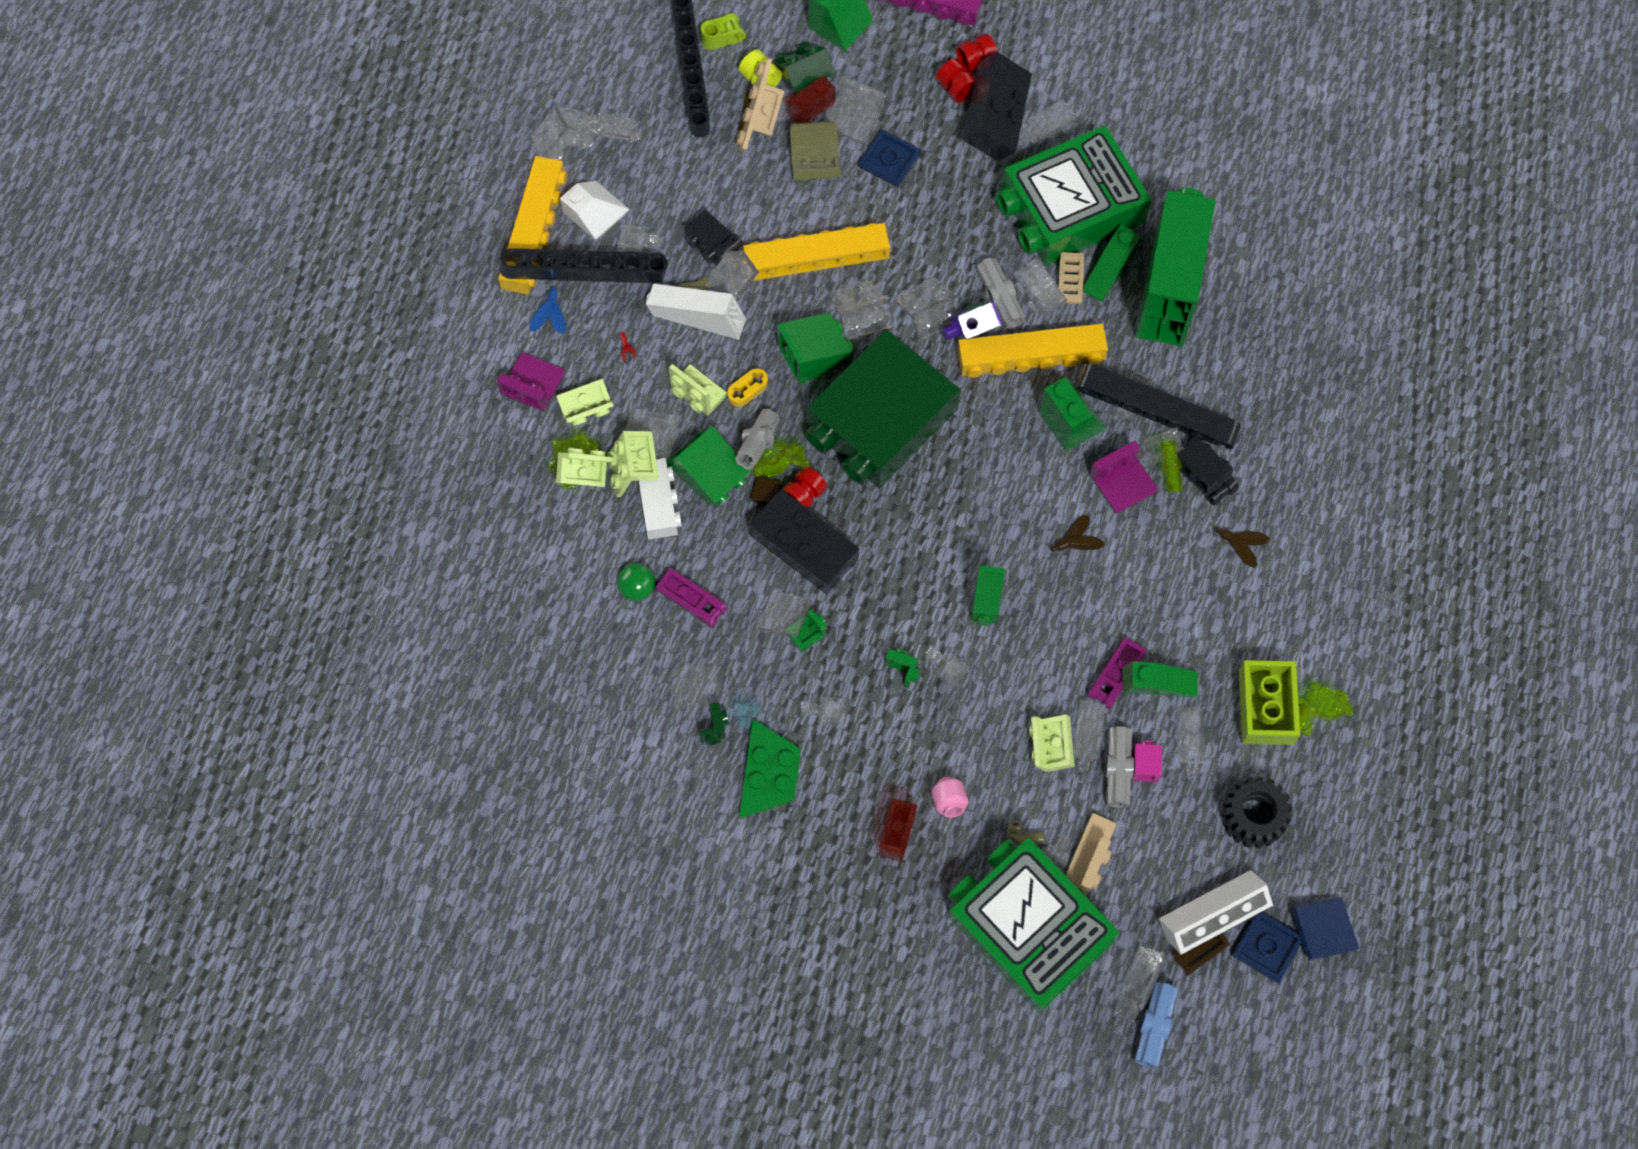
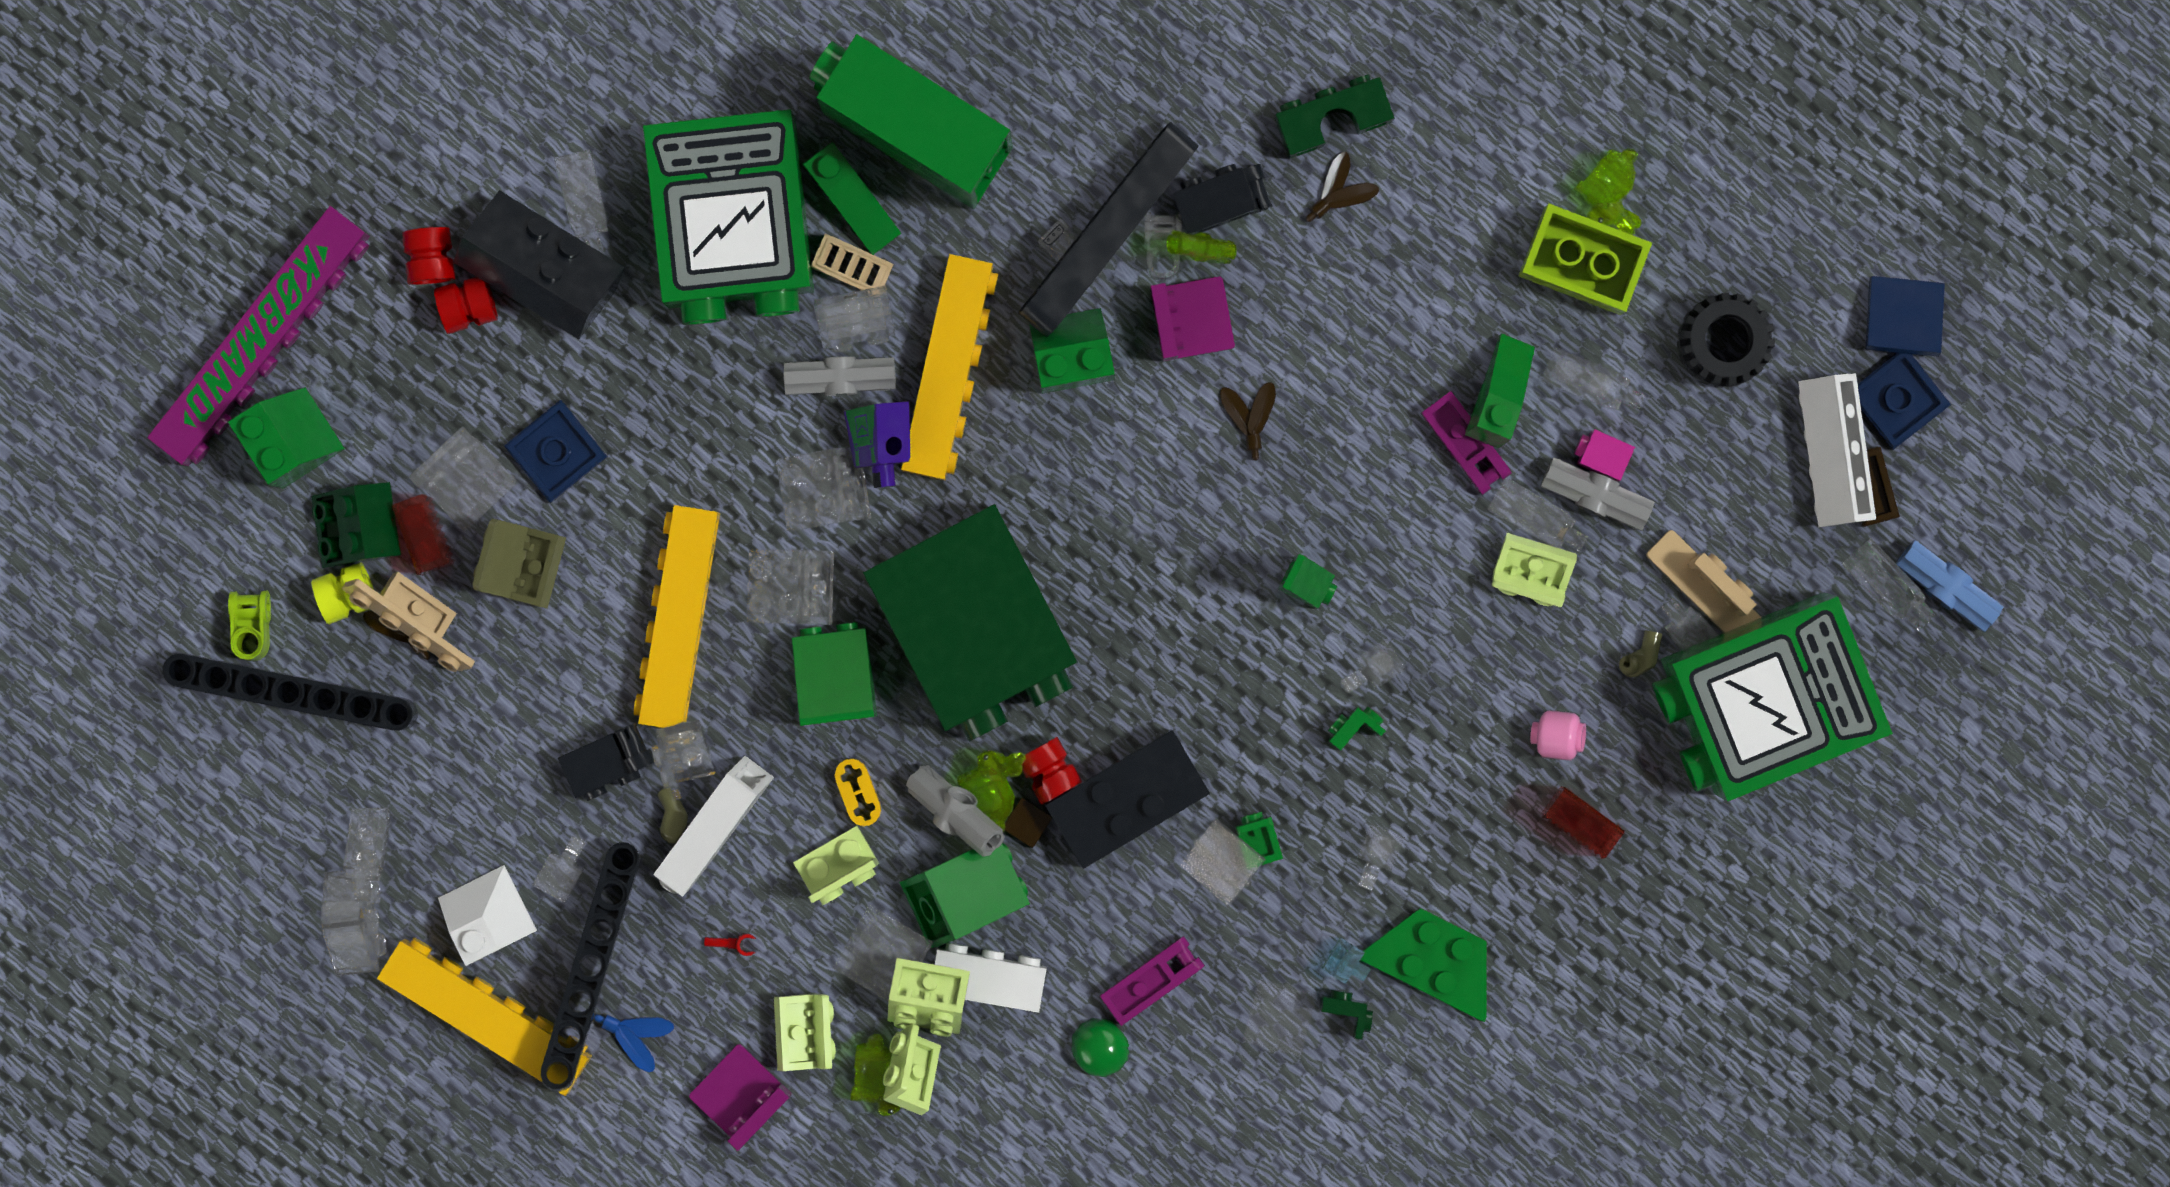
camera: 70 degrees left, 20 degrees up
(1276, 503) = (1363, 102): none -> dark green arch

